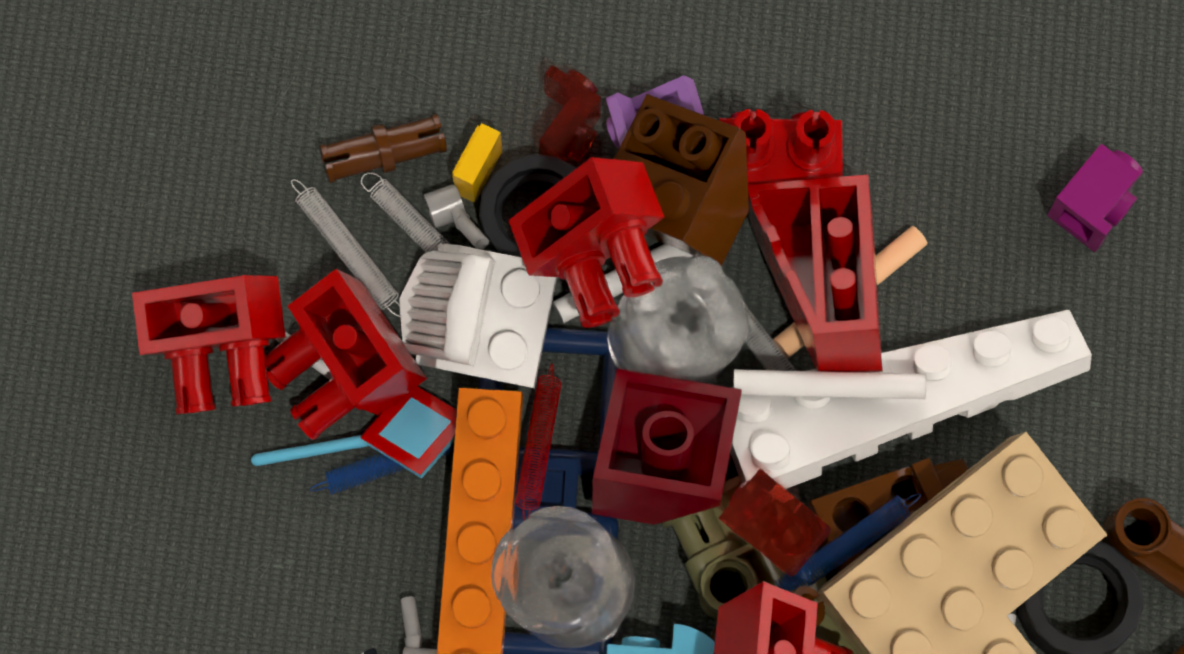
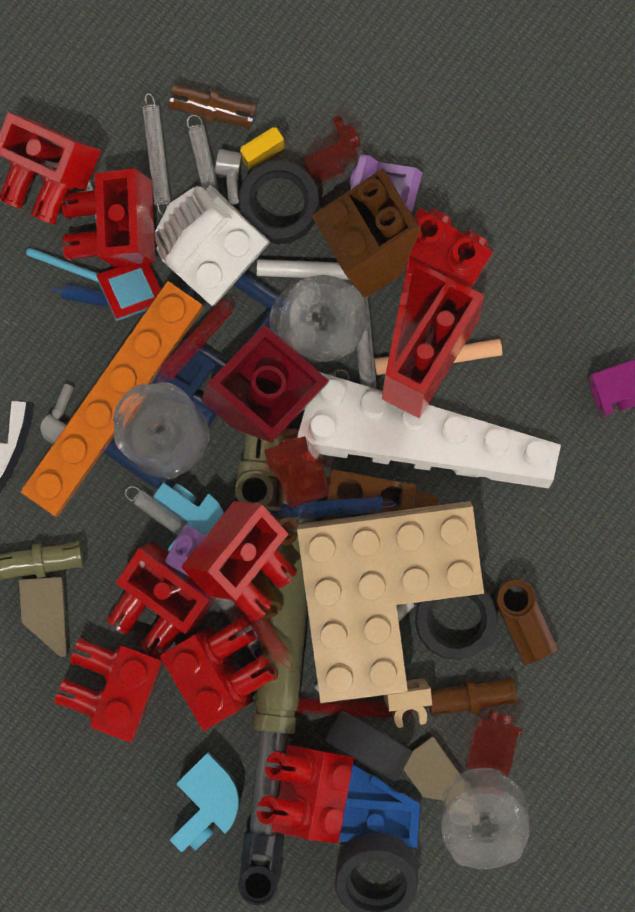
camera: 30 degrees right, 10 degrees up
(584, 221) = (297, 229): red brick -> none
(830, 384) = (383, 408): white bar -> none

